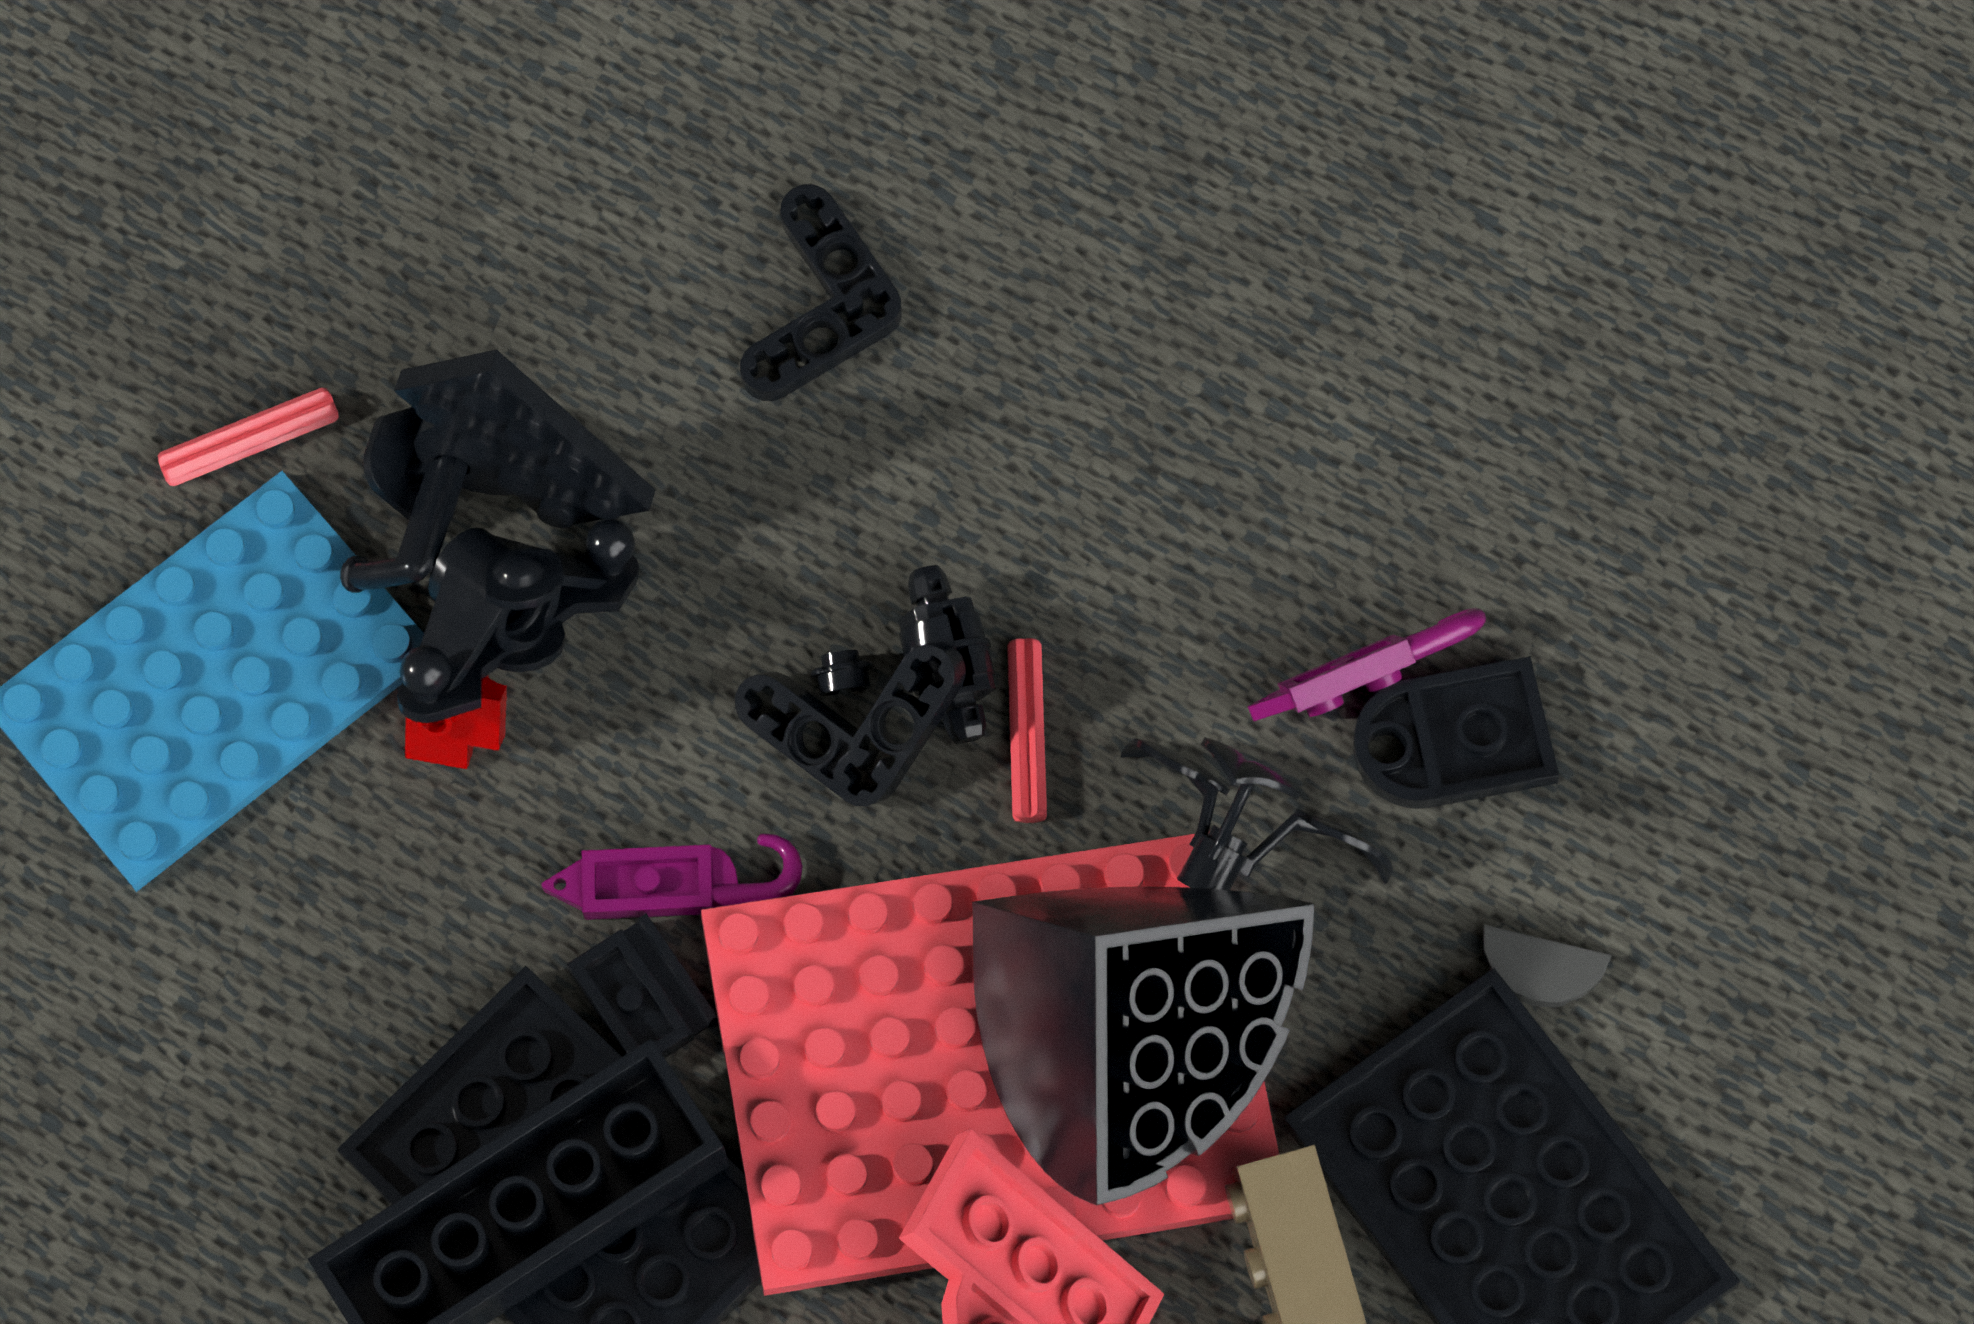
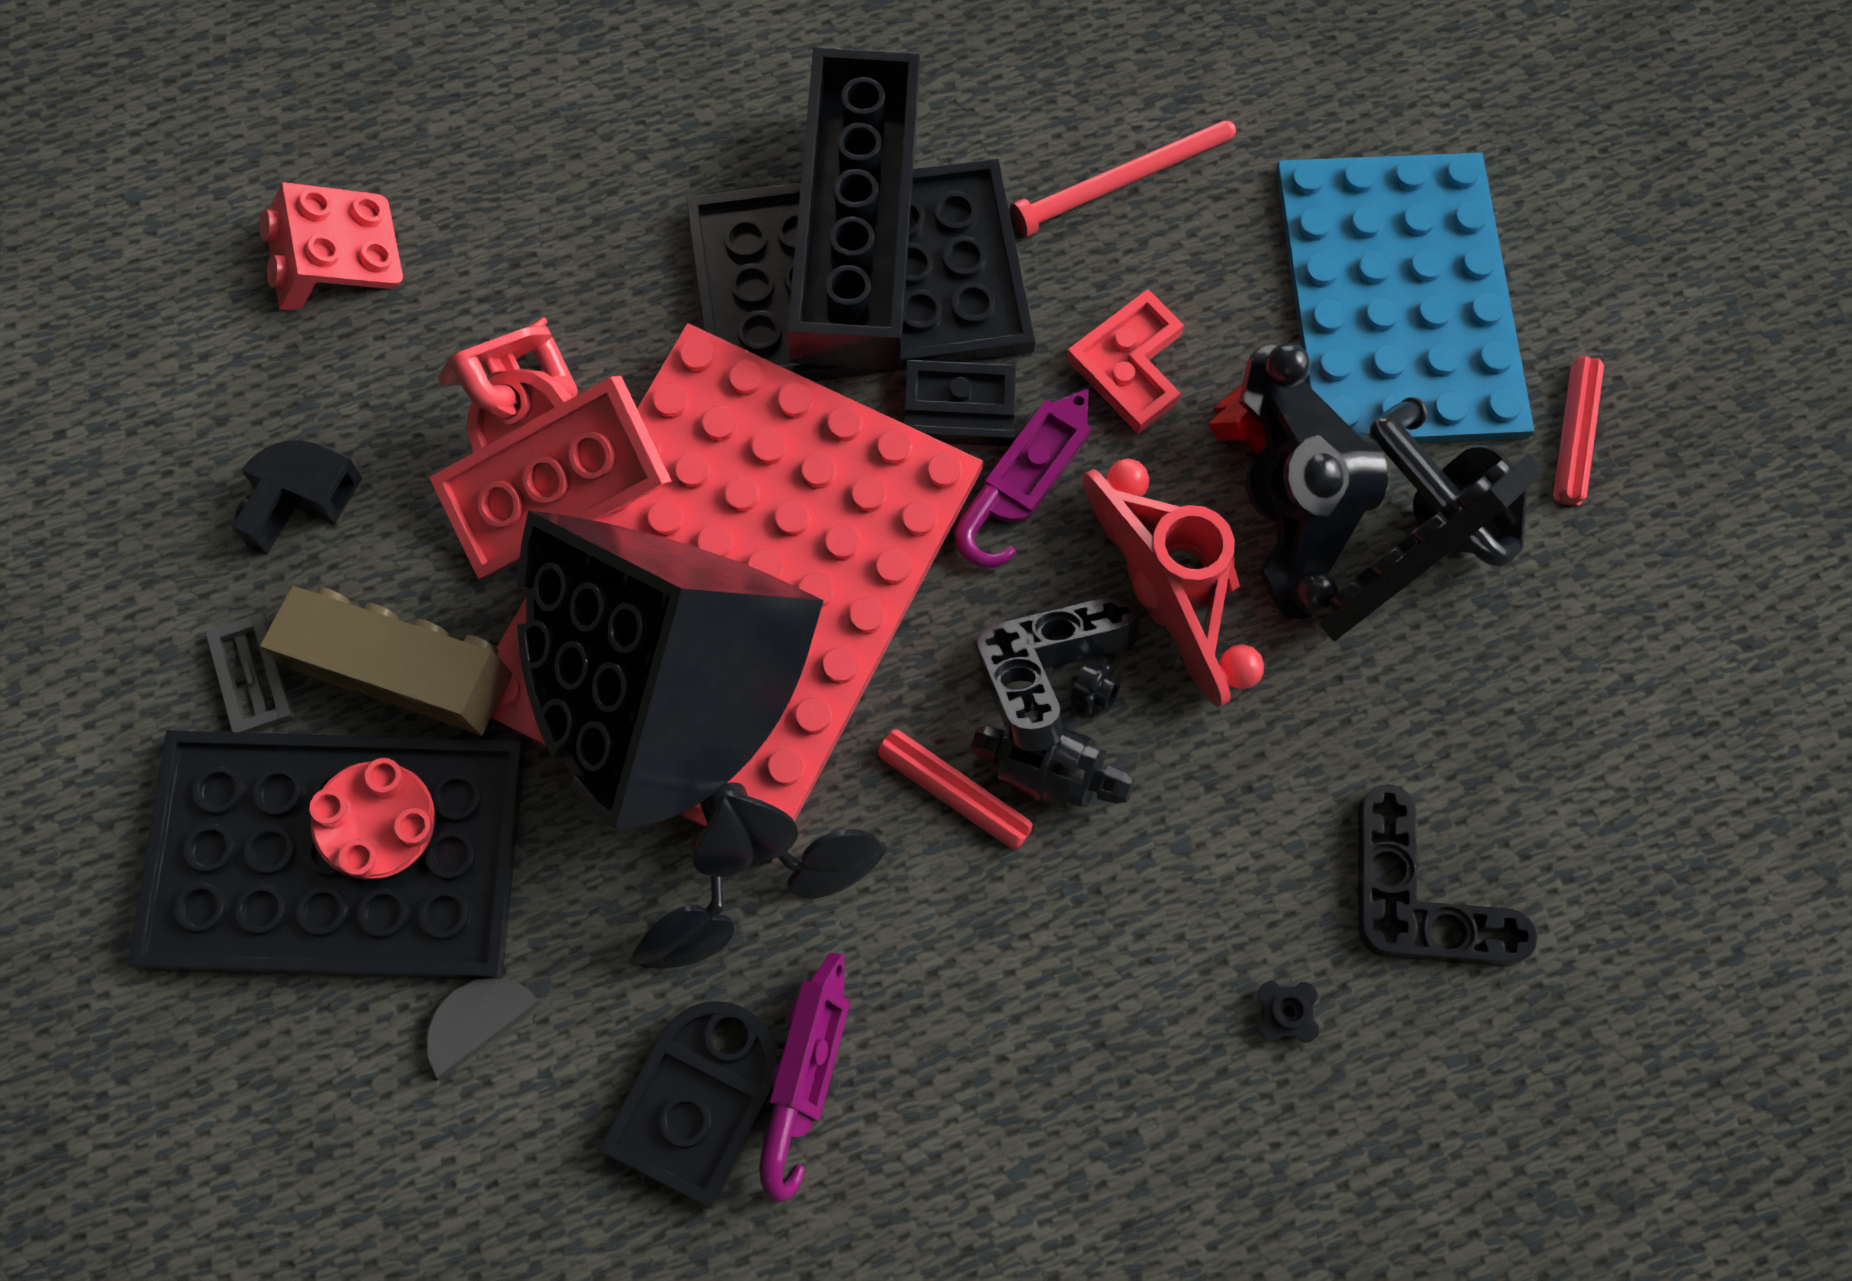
camera: 120 degrees right, 0 degrees up
(376, 1080) = (1028, 216): none -> coral bar
(485, 885) = (1118, 355): none -> coral plate
(693, 690) = (1171, 593): none -> coral piece
(1005, 355) = (1275, 1024): none -> black plate
(1456, 1171) = (372, 819): none -> coral dish

